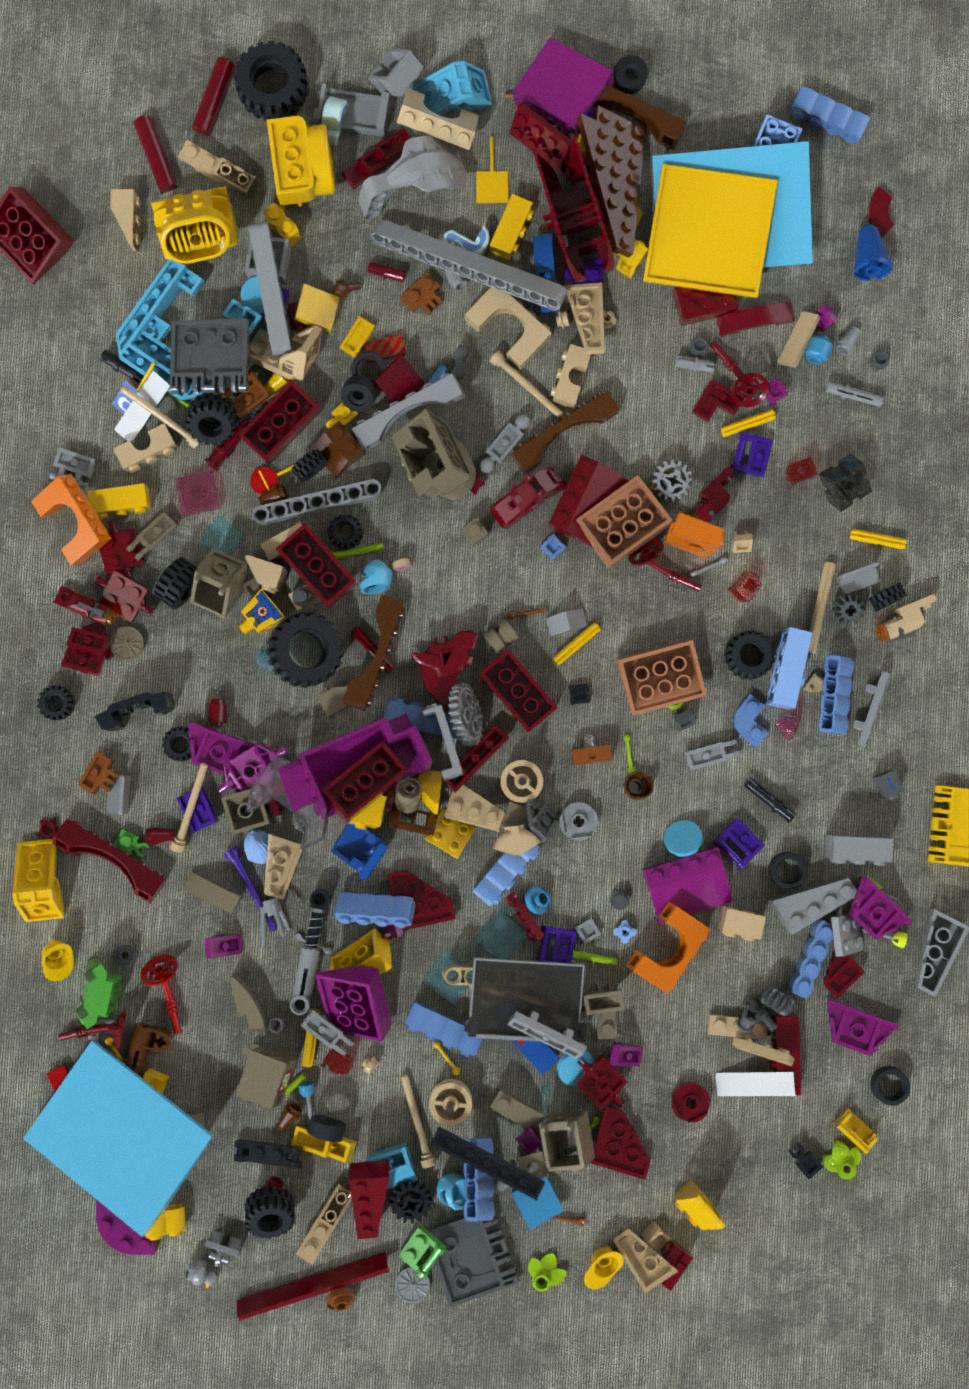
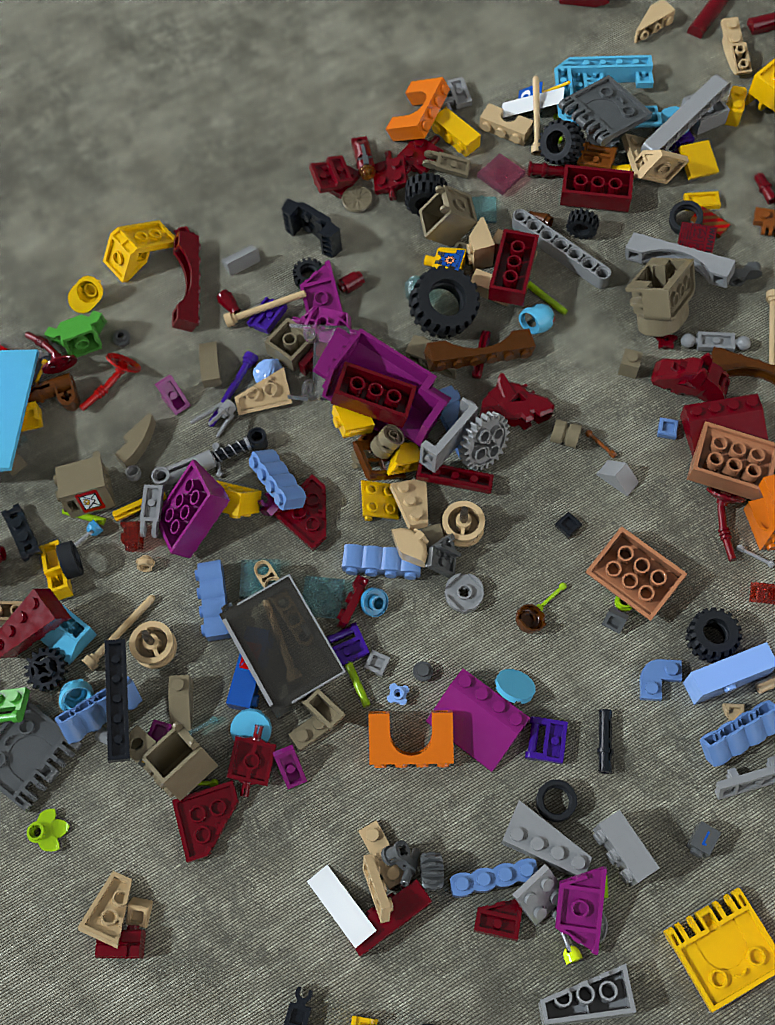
camera: 60 degrees right, 20 degrees down
(45, 697) = (279, 174): black tyre -> none
(98, 774) = (246, 237): dark orange hinge -> none
(120, 366) = (549, 75): black pin -> none
(129, 842) = (209, 290): bright green plate -> none
(195, 225) = (699, 53): yellow brick -> none
(265, 478) = (548, 206): red piece -> none
(290, 1115) = (63, 529): reddish brown cone -> none
(302, 597) = (482, 276): dark grey plate -> none
(338, 449) = (611, 237): reddish brown slope -> none
(341, 288) = (727, 167): reddish brown plate -> none
(343, 415) = (637, 225): yellow plate -> none
(345, 520) = (554, 271): black tyre -> none
(360, 849) = (318, 443): blue bracket -> none
(361, 384) = (655, 216): black tyre -> none
(400, 564) = (561, 330): tan tile -> none
(456, 1070) = (184, 636): yellow hinge -> none
(518, 690) = (533, 473): dark red brick -> none
(543, 1209) = (108, 780): dark azure tile -> none
(559, 1041) = (262, 676): light grey hinge -> none
(577, 643) = (607, 495): yellow axle -> none
(581, 1221) = (113, 831): dark orange hinge -> none
(591, 752) = (528, 564): dark orange piece -> none
(603, 1267) = (80, 877): yellow piece -> none
(686, 1112) = (272, 858): dark red plate -> none
(698, 1207) = (191, 928): yellow slope -> none
(710, 755) = (604, 663): light grey hinge -> none
(743, 923) = (479, 785): tan piece -> none
(788, 725) = (682, 712): clear pink brick -> none
(857, 1028) = (459, 973): magenta wing -> none

